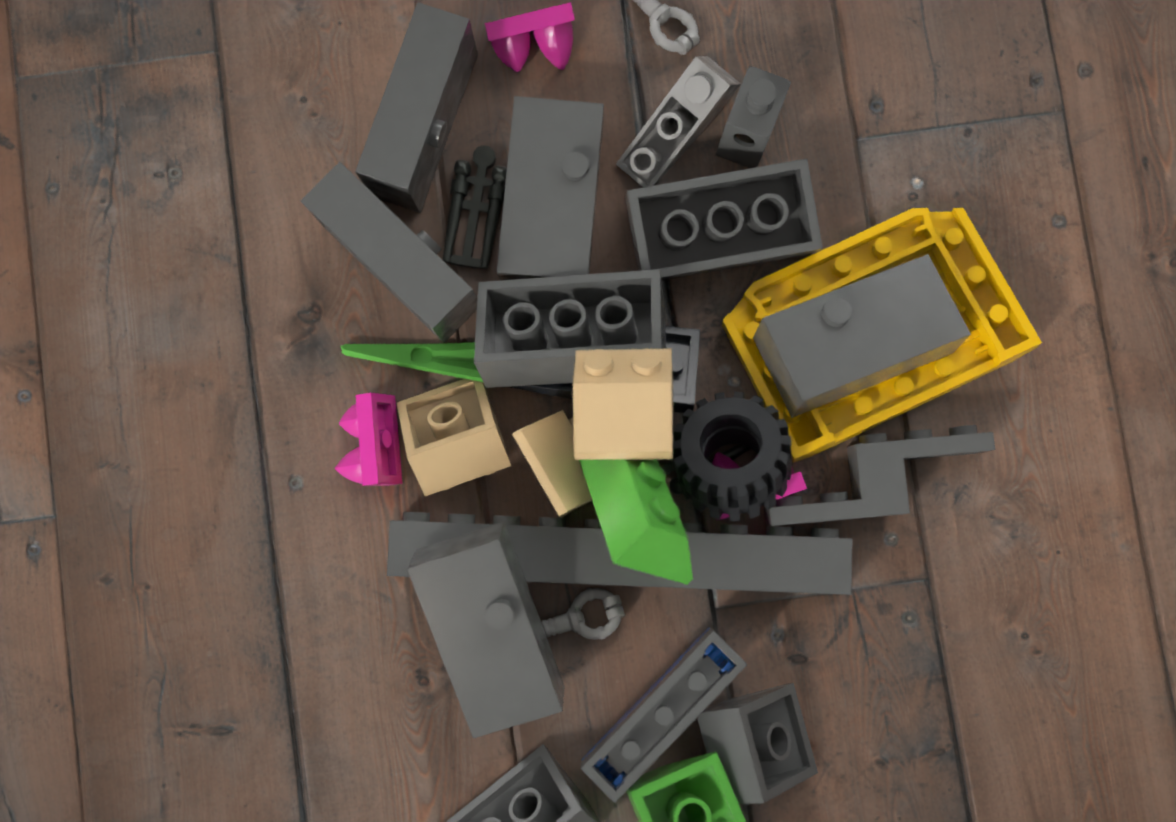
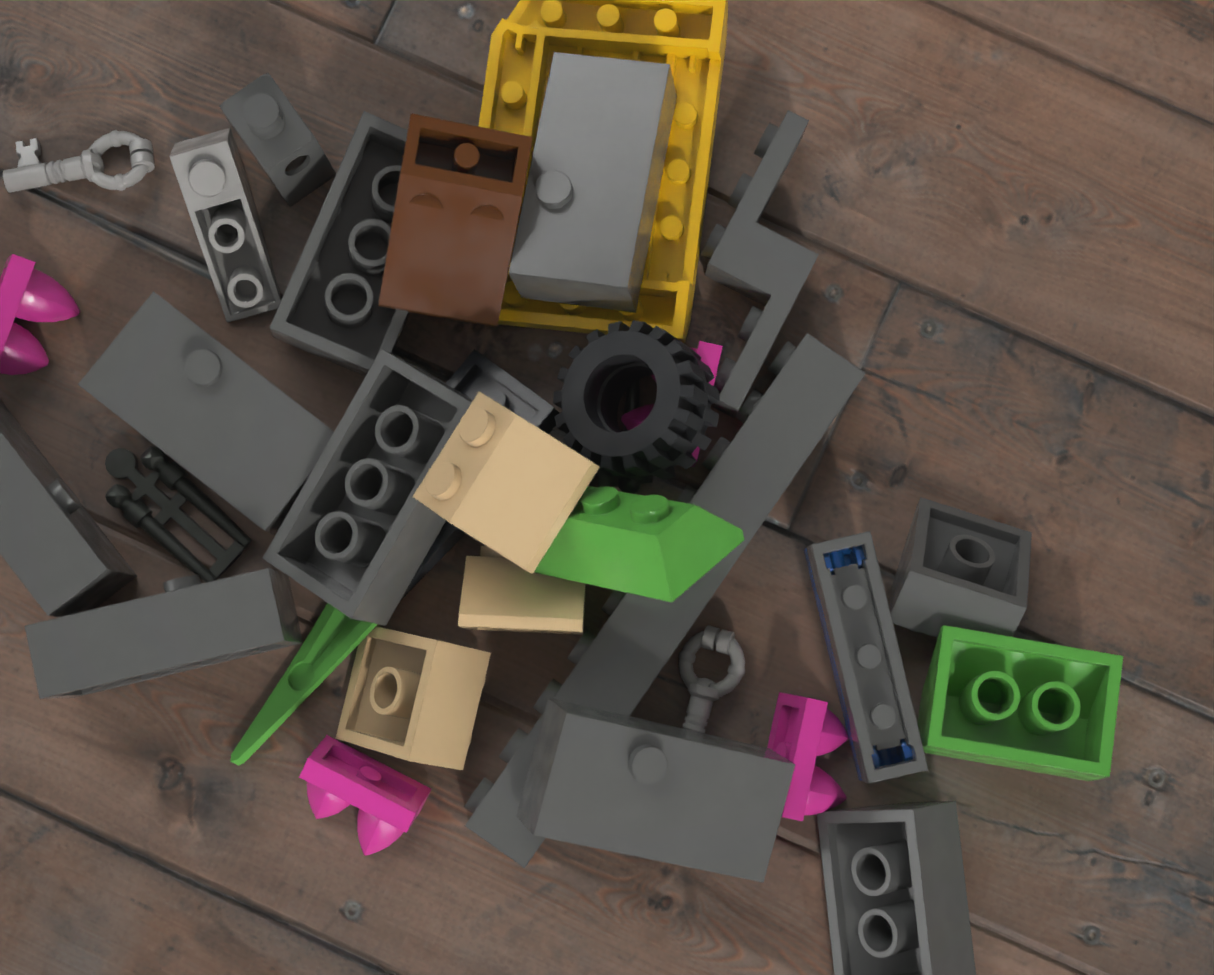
camera: 65 degrees left, 0 degrees up
(586, 701) = (800, 733): none -> dark pink tile
(774, 261) = (454, 220): none -> reddish brown slope

